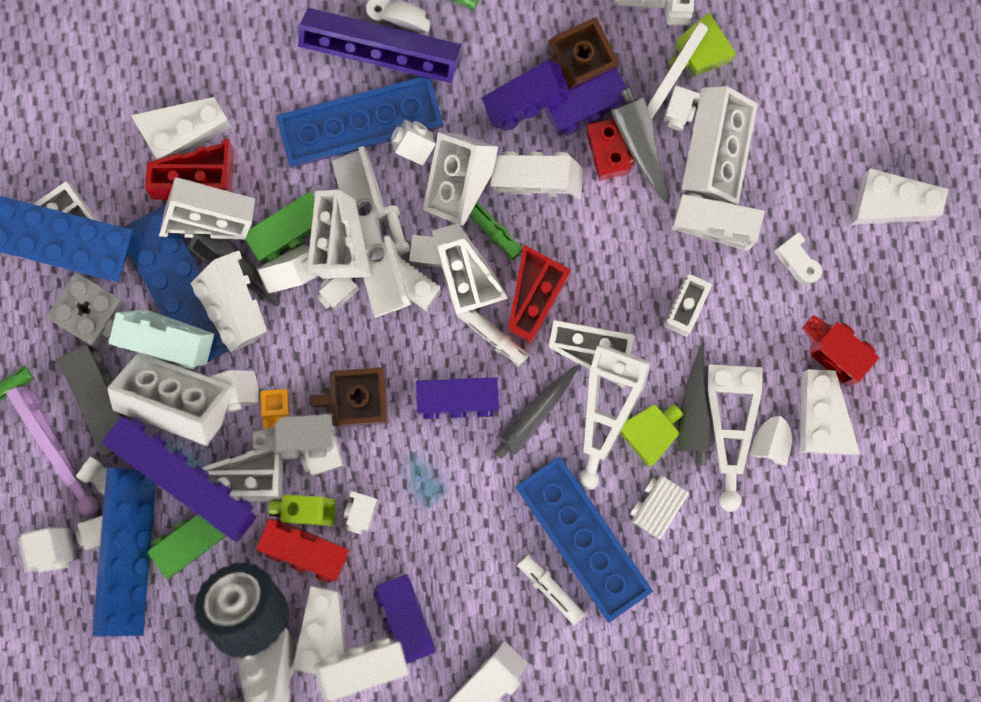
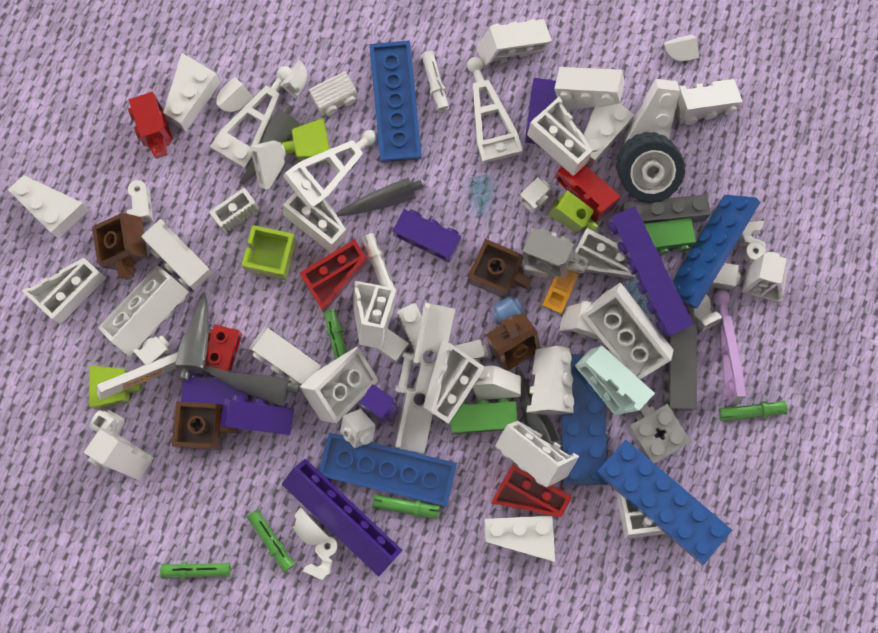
camera: 150 degrees left, 5 degrees down
(77, 583) = (753, 247): none -> white leg
(189, 578) = (674, 208): none -> dark grey brick
(295, 323) = (513, 341): none -> reddish brown hinge
(319, 93) = (405, 506): none -> bright green pin
(320, 359) = (507, 308): none -> medium blue head
(362, 586) = (560, 138): none -> white wedge
(400, 172) = (379, 404): none -> dark purple brick
(431, 550) = (497, 147): none -> white plate
(536, 129) = (260, 386): none -> dark grey piece
(617, 278) = (272, 252): none -> lime piece
(684, 382) = (268, 162): none -> white slope
(712, 501) = (296, 80): none -> white brick
(786, 197) = (120, 243): none -> reddish brown hinge
(814, 117) = (65, 290): none -> white wedge

